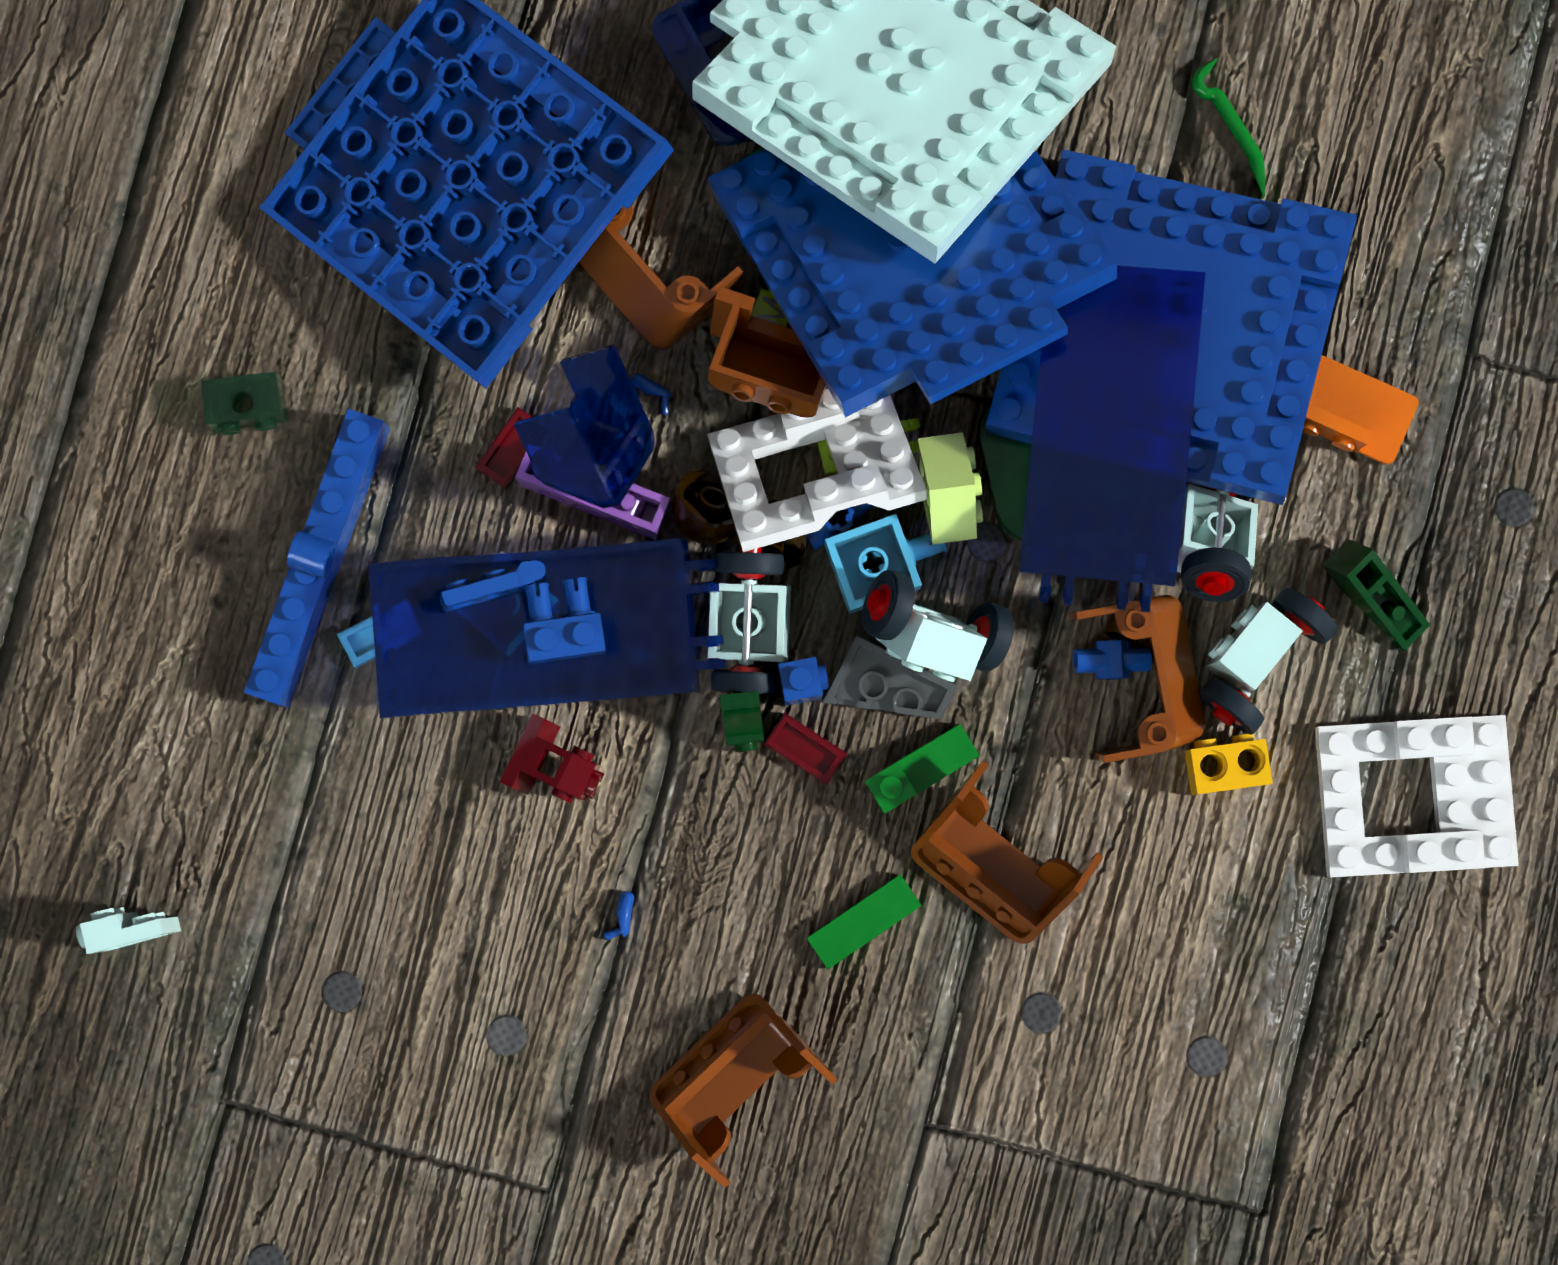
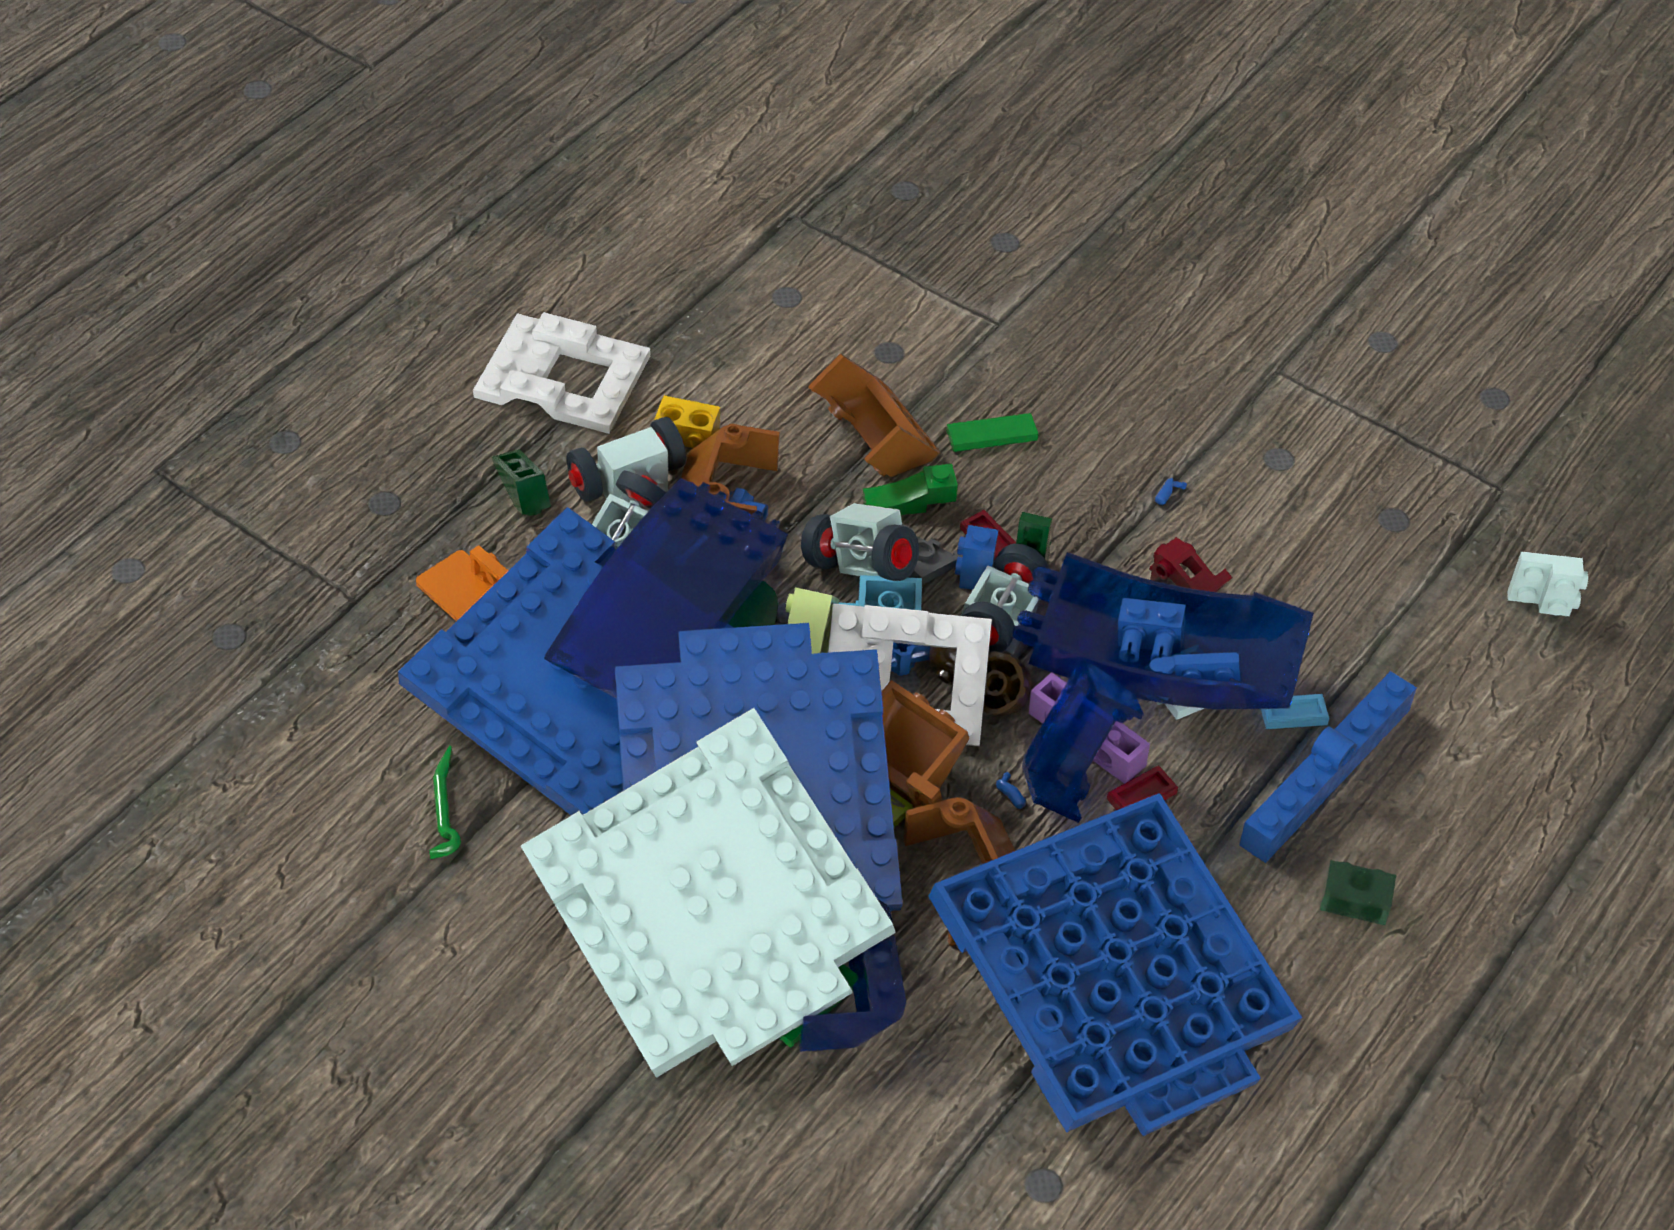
camera: 160 degrees left, 35 degrees down
(724, 1073) = (1156, 381): dark orange windscreen -> none

